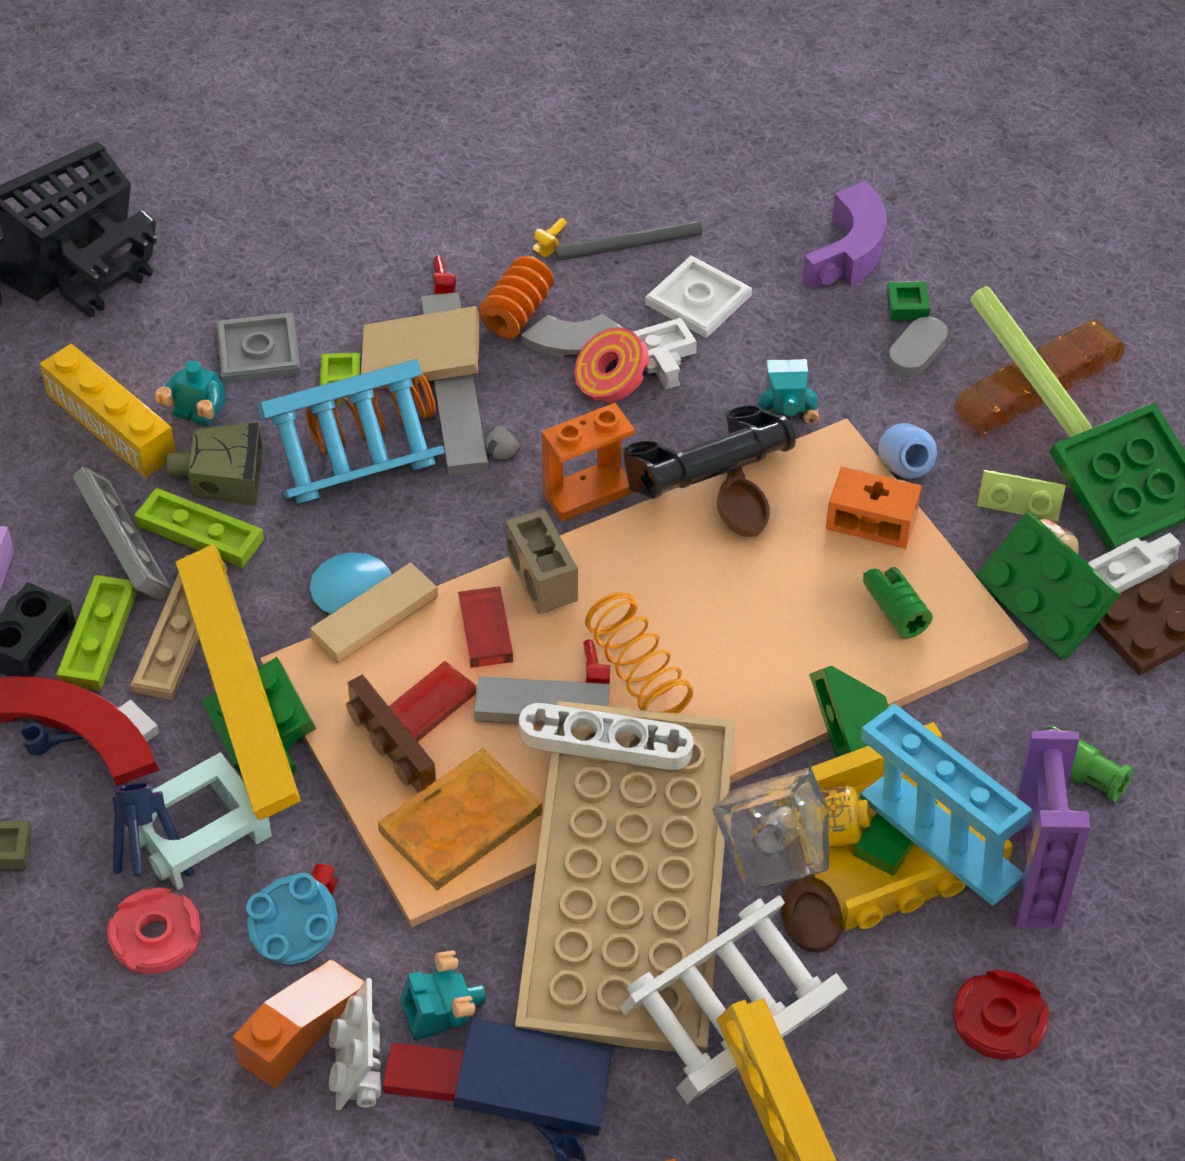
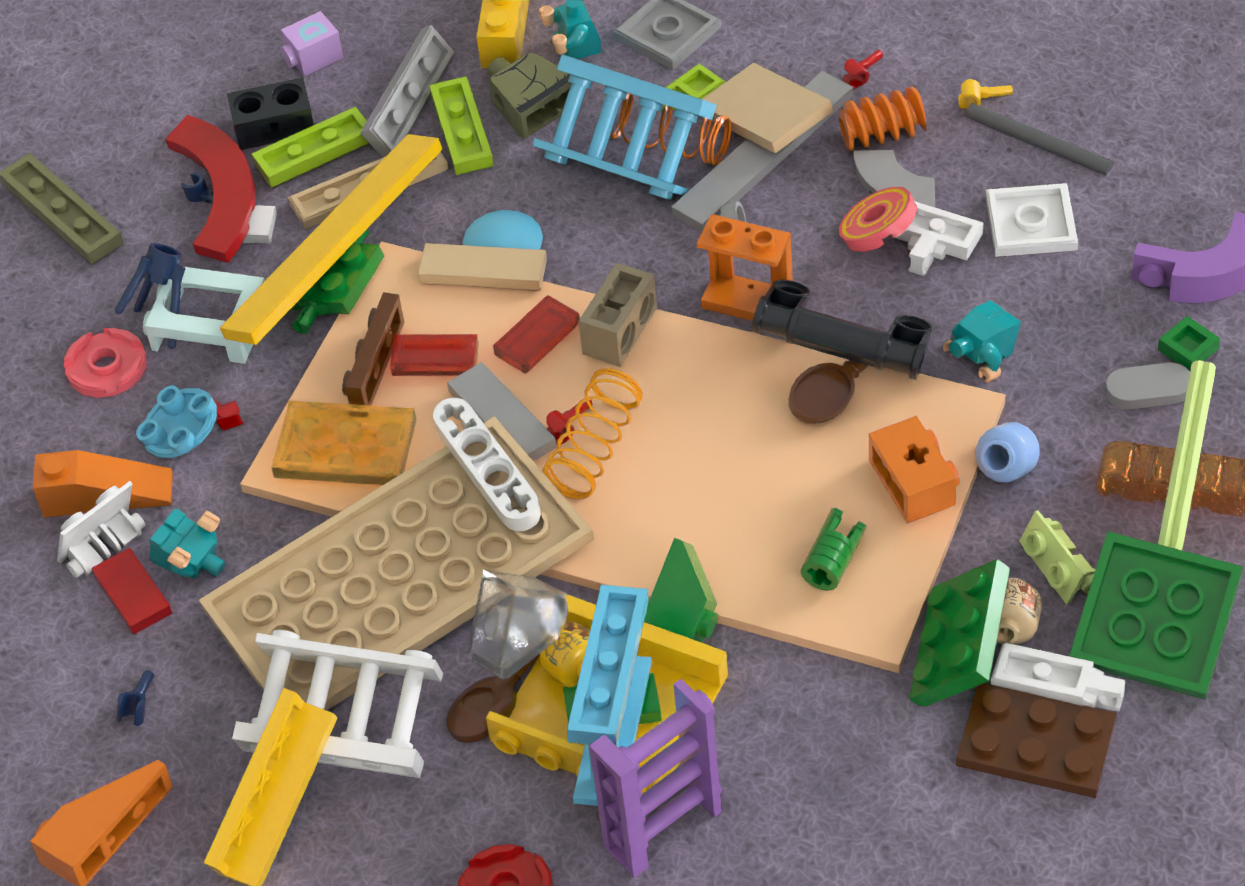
camera: 55 degrees right, 0 degrees up
(533, 1077) = (171, 642): dark blue tile -> none
(1099, 771) = (809, 787): bright green piece -> none

